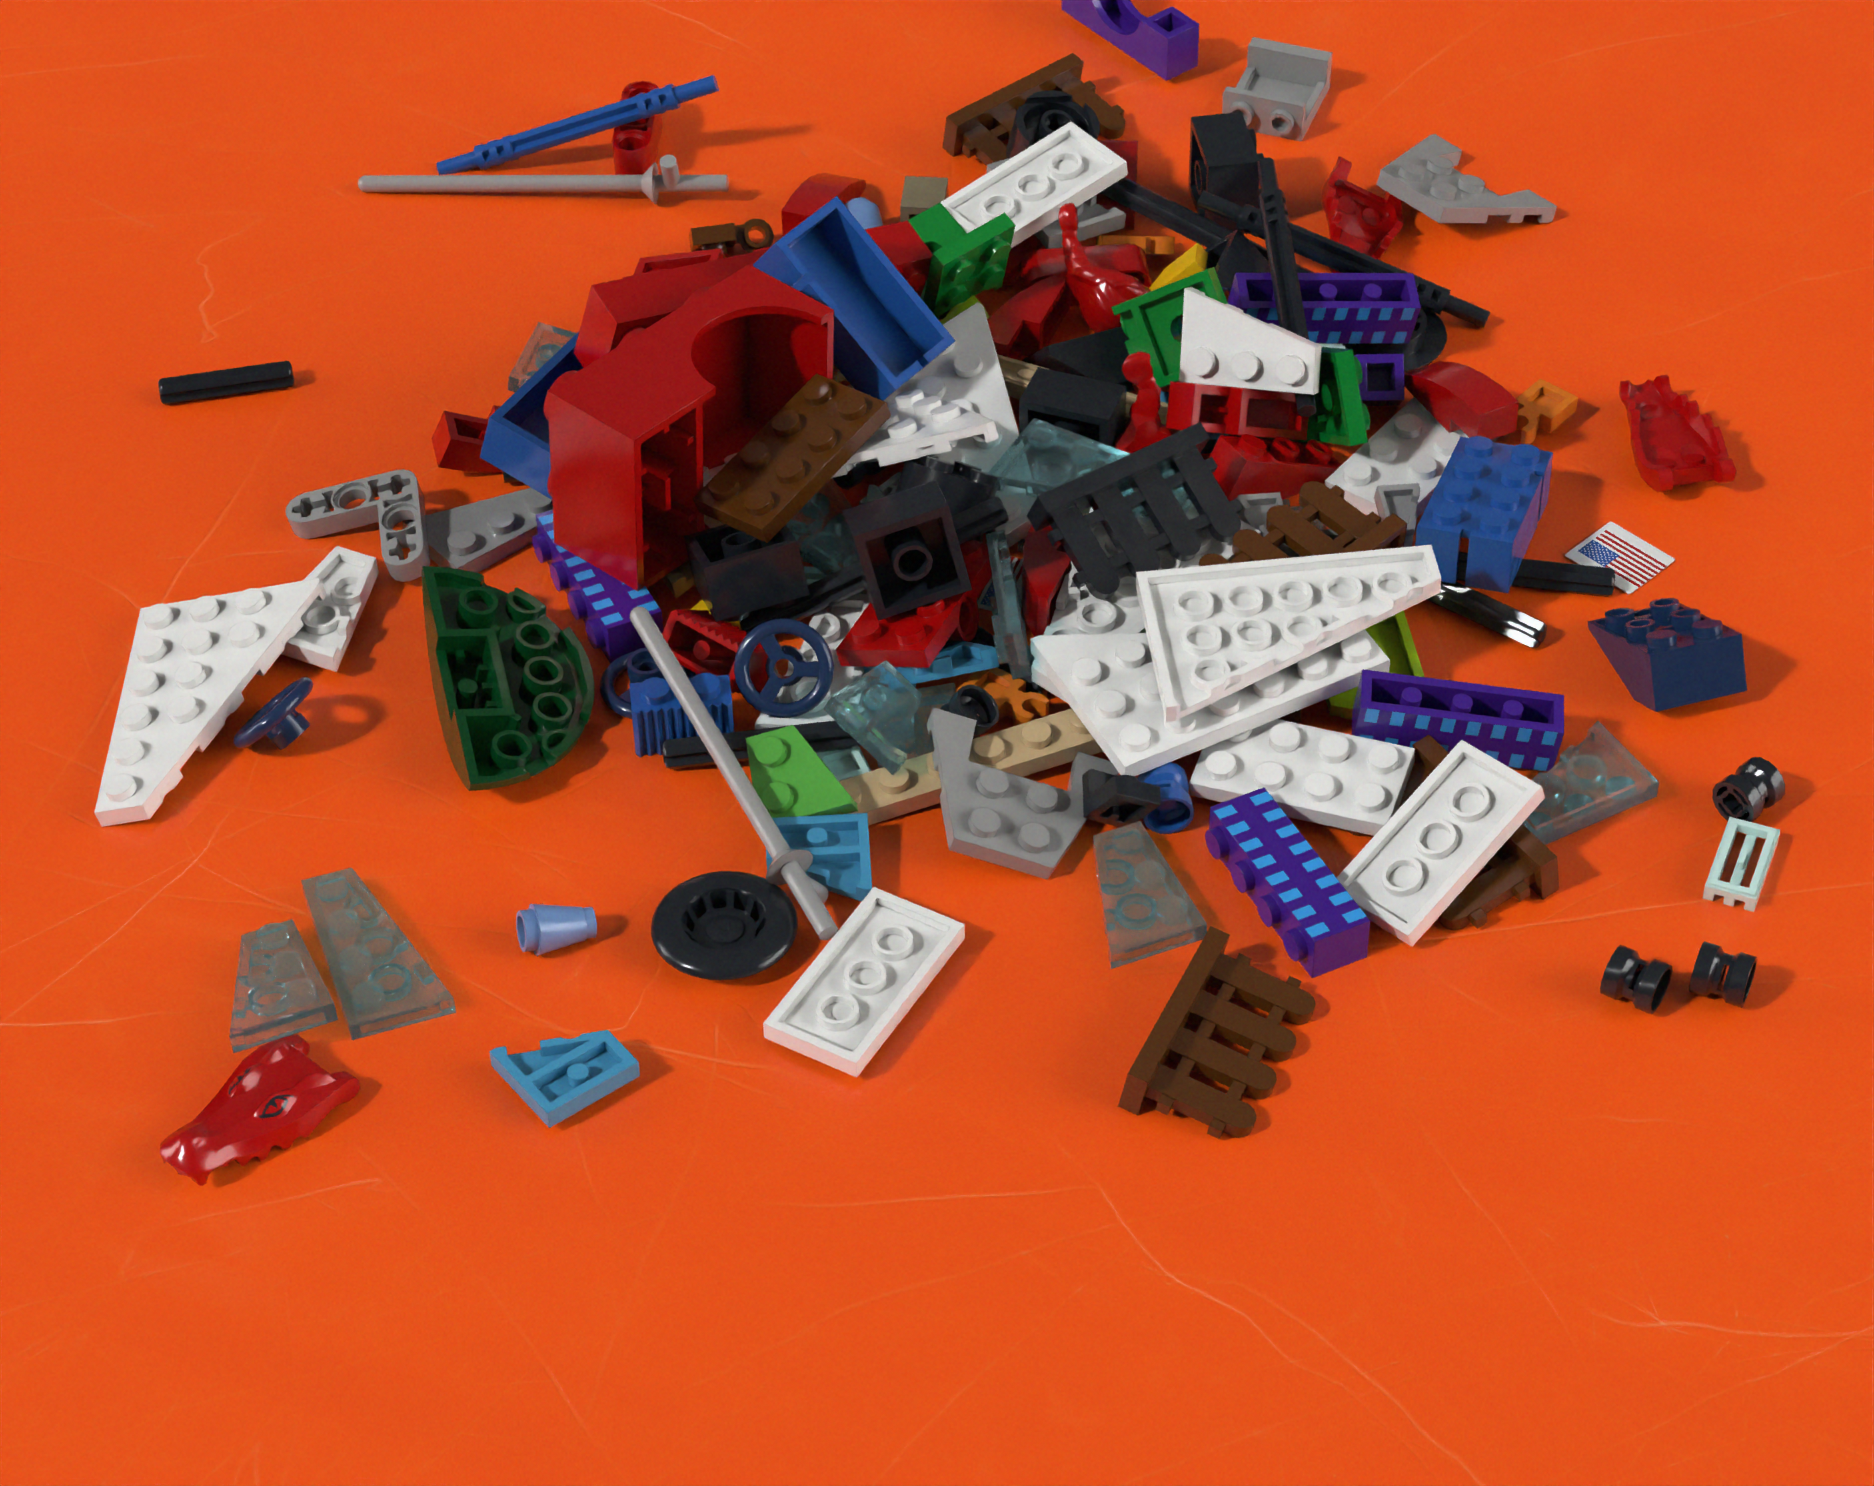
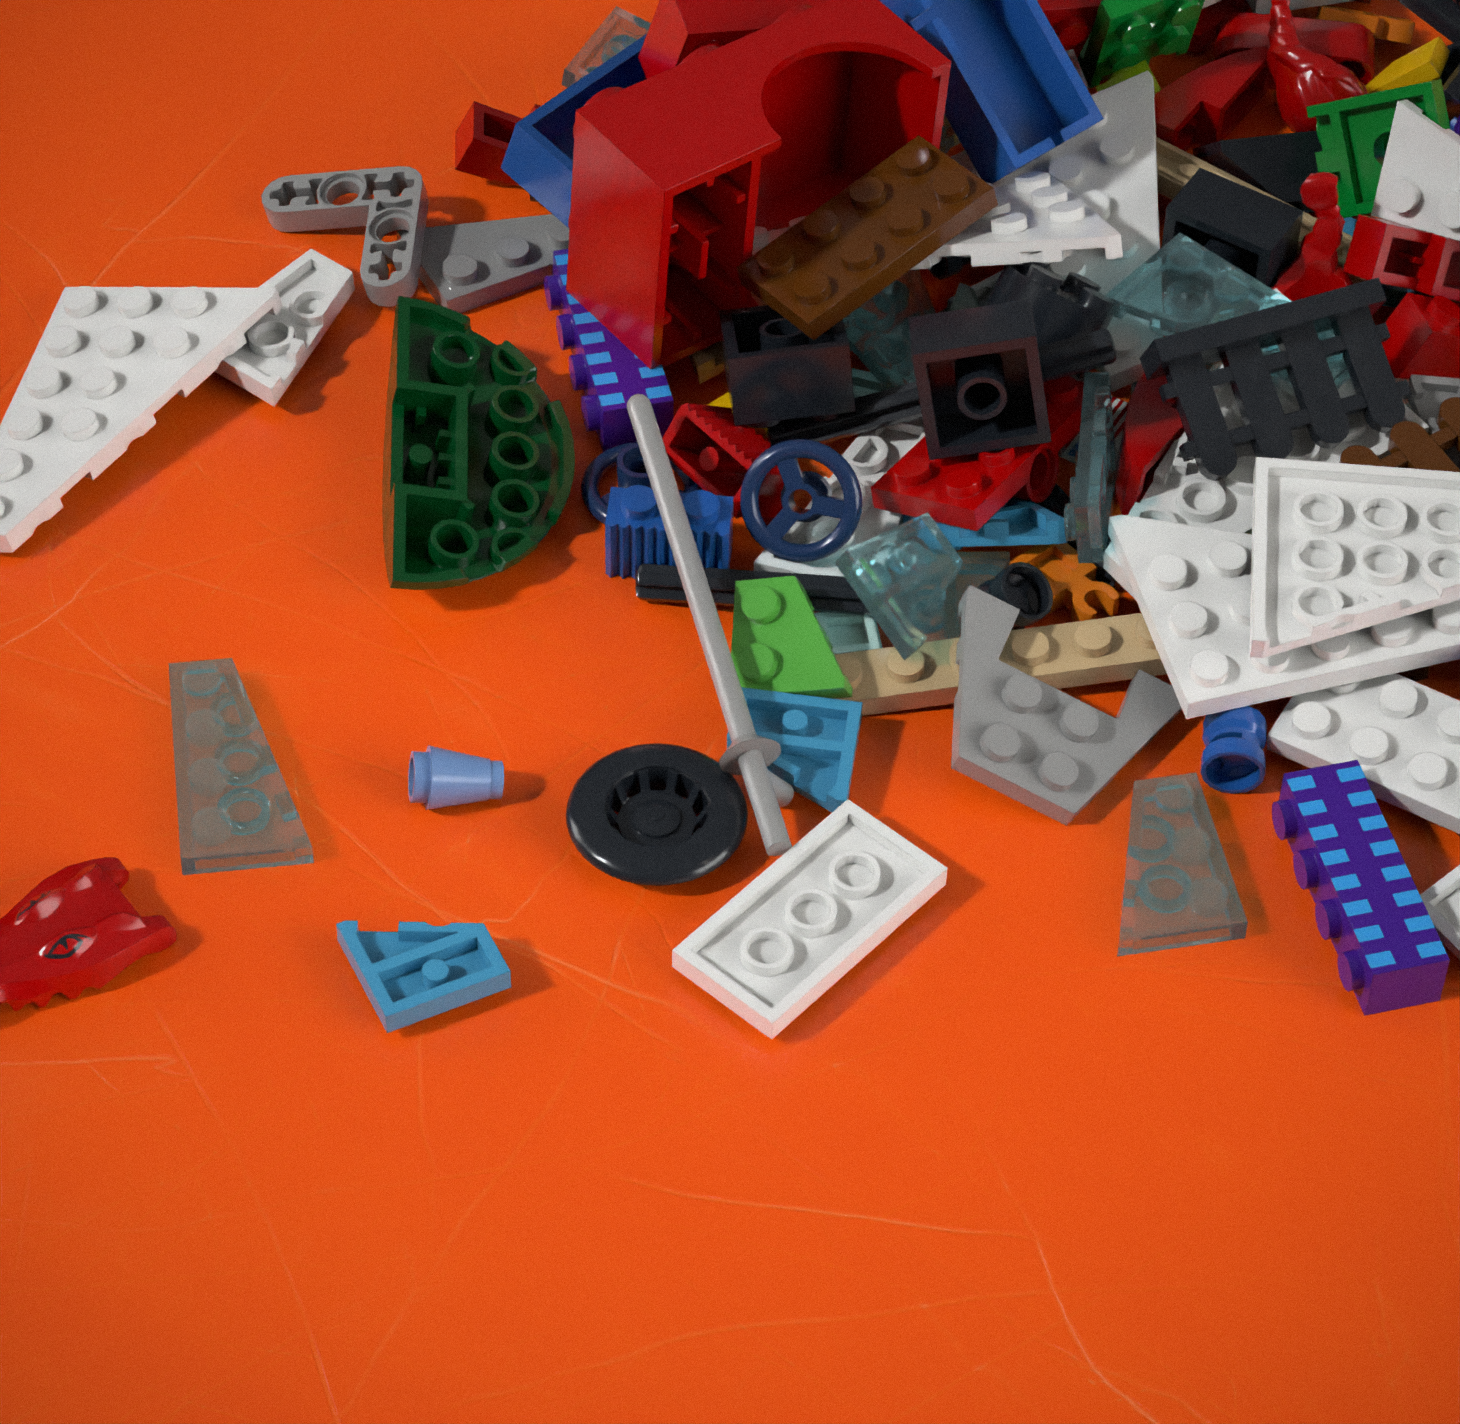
camera: 10 degrees right, 5 degrees up
(226, 382) = (233, 20): black axle -> none
(276, 988) = (105, 795): clear light blue wing -> none
(278, 718) = (189, 454): dark blue piece -> none
(1117, 798) = (1171, 739): black bracket -> none
(1213, 1060) = (1196, 1088): reddish brown fence -> none

